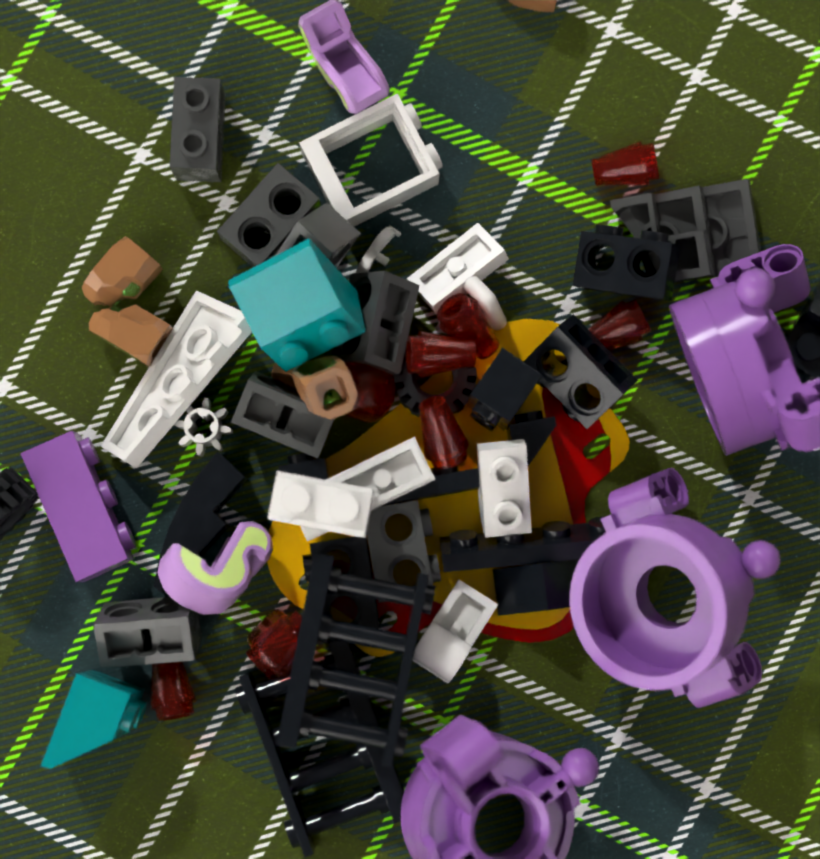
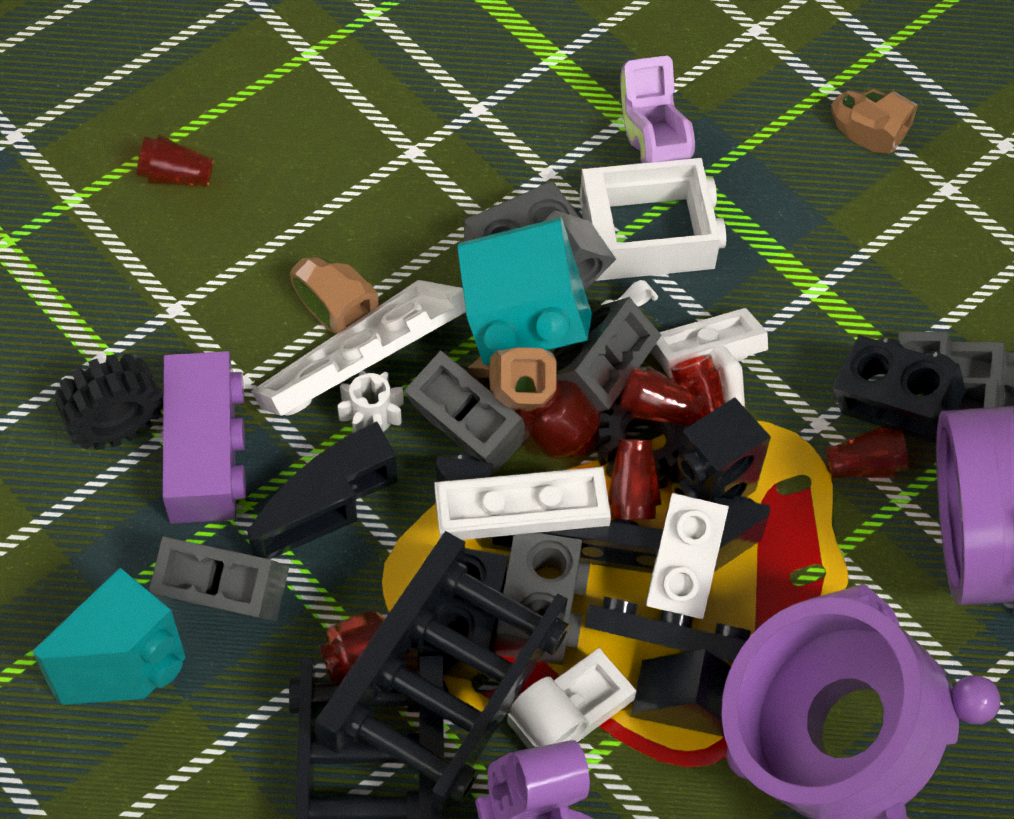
camera: 20 degrees right, 25 degrees down
(120, 274) = (347, 234): medium nougat rock -> none
(171, 691) = (216, 658): clear red cone -> none
(197, 129) = (481, 137): dark grey brick -> none
(216, 587) = (319, 547): lavender animal -> none
(321, 504) = (472, 485): white brick -> none
(587, 363) = (820, 469): black brick -> none
(627, 166) = (927, 306): clear red cone -> none

